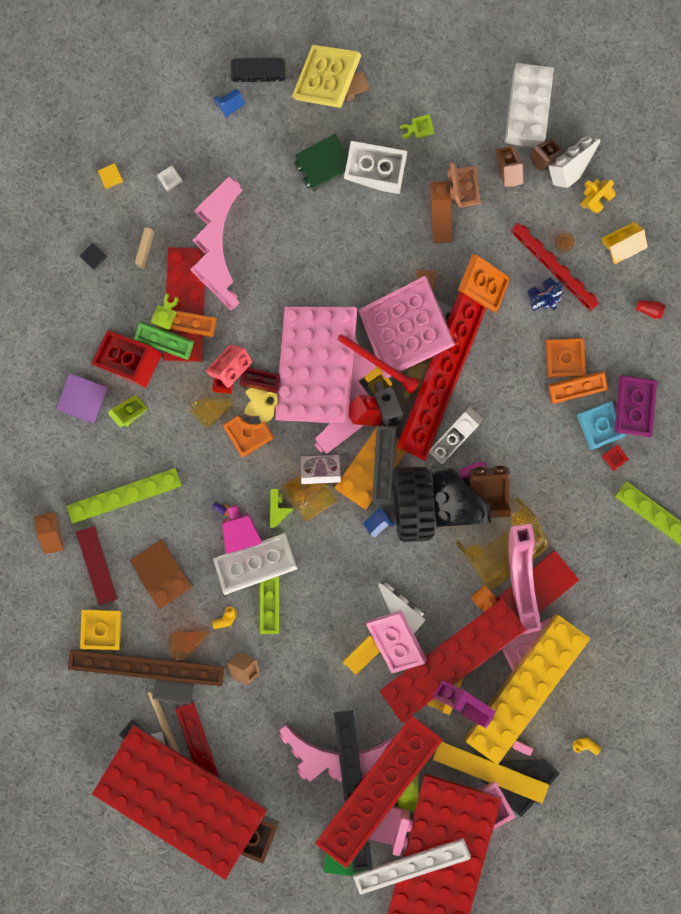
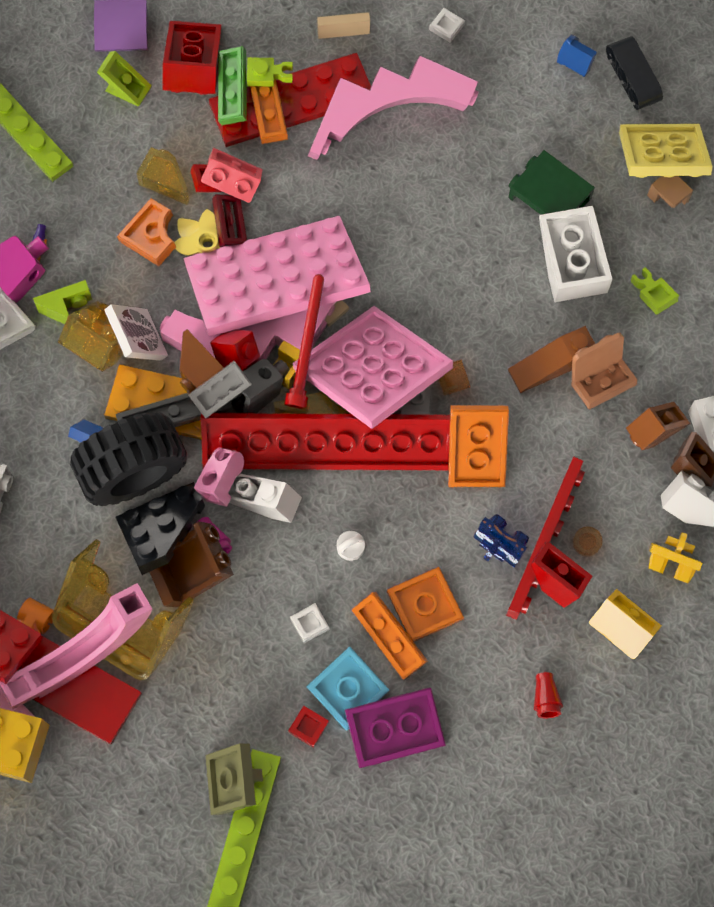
camera: 70 degrees right, 15 degrees down
(365, 438) = (196, 363): none -> dark orange slope
(391, 429) = (219, 389): none -> light grey plate
(440, 451) = (219, 476): none -> bright pink leg
(511, 388) = (350, 545): none -> white tile
(550, 432) = (309, 623): none -> white tile
(586, 268) = (559, 575): none -> red slope
(632, 515) = (231, 779): none -> olive hinge

